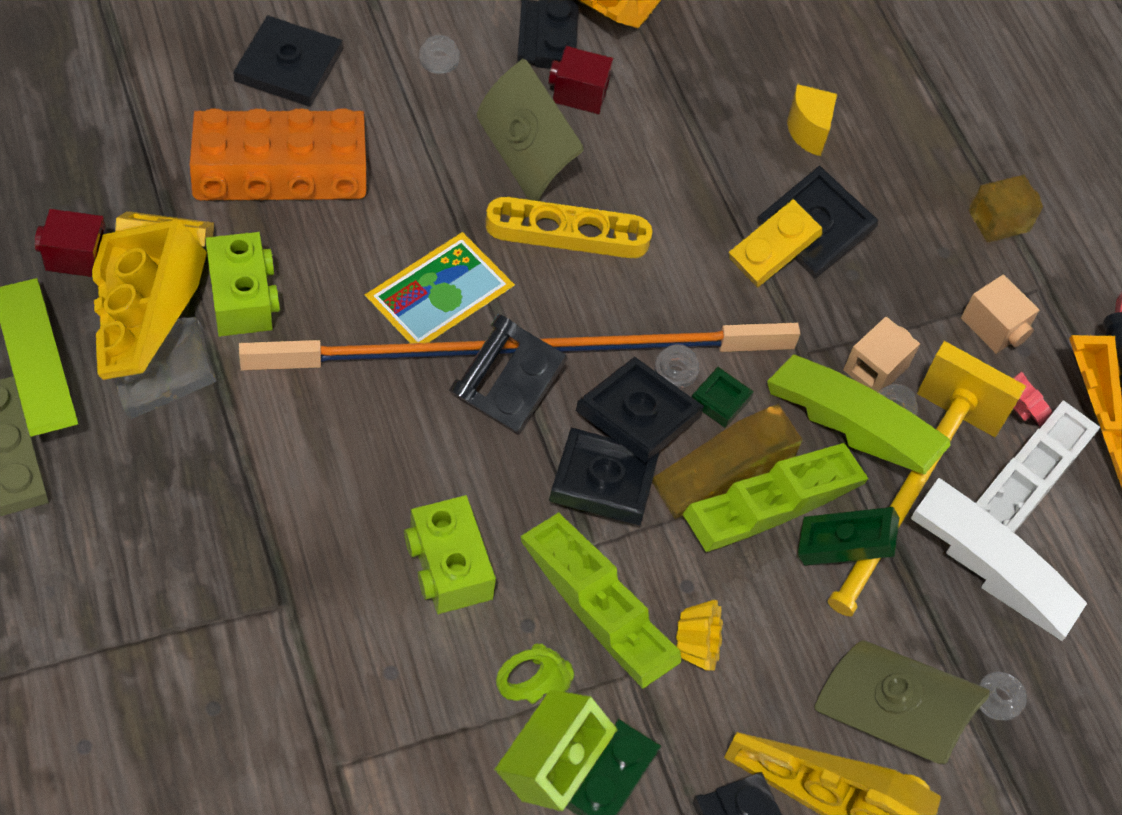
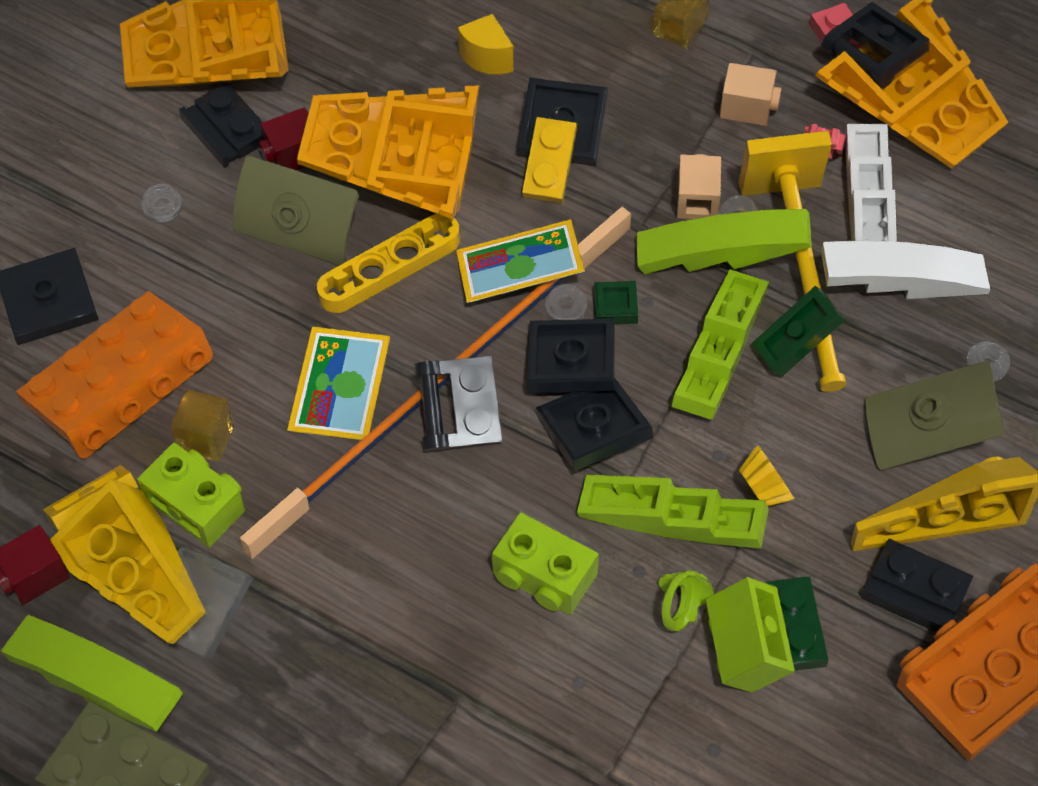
camera: 30 degrees left, 0 degrees up
(298, 238) = (203, 424): none -> clear yellow brick
(659, 142) = (395, 143): none -> light orange wedge
(672, 303) = (519, 261): none -> sticker
(735, 454) = (668, 343): clear yellow slope -> none

